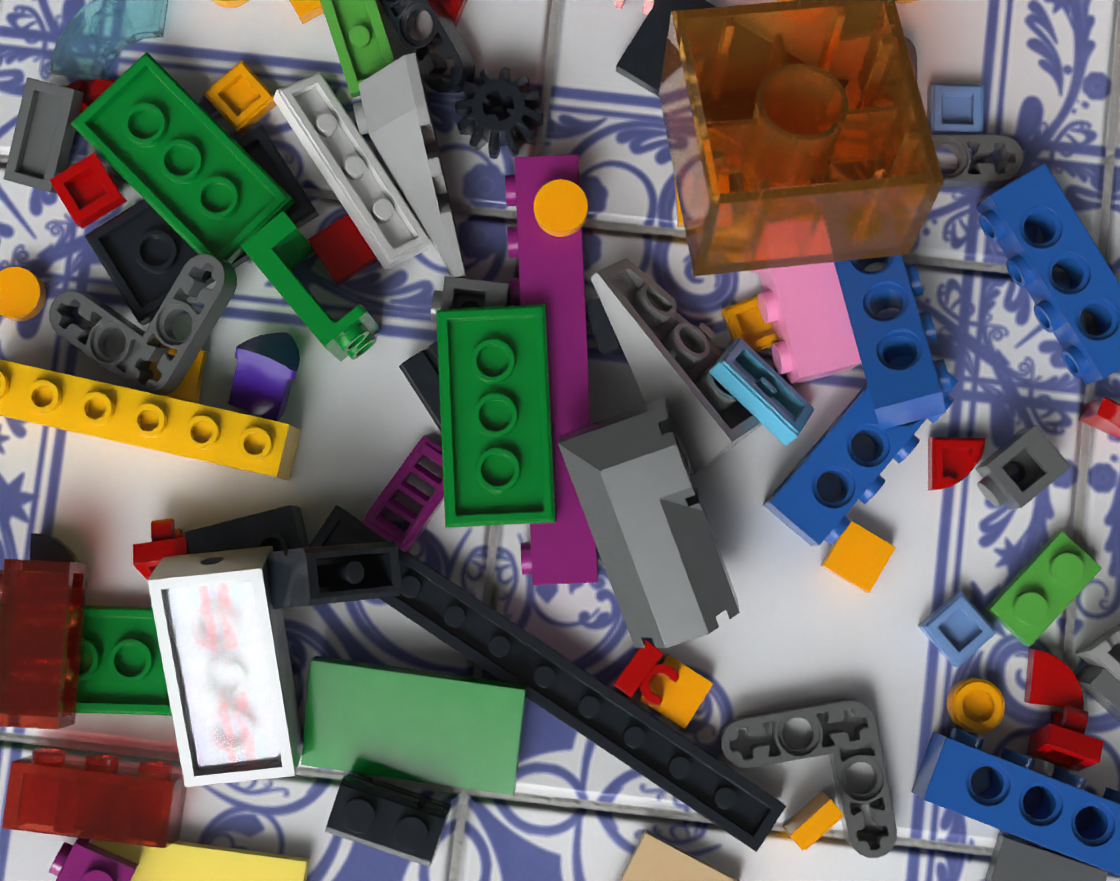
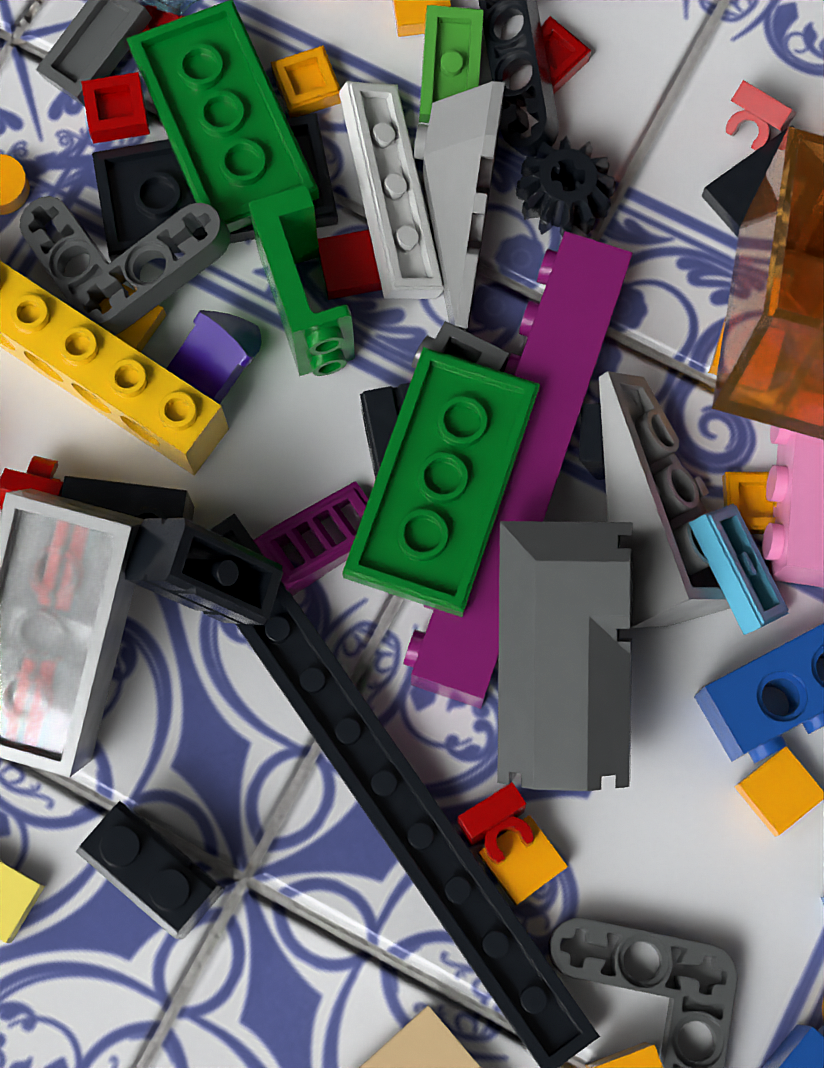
camera: 15 degrees right, 10 degrees down
(413, 725) = (221, 780): tile -> none
(560, 208) = (594, 295): light orange tile -> none

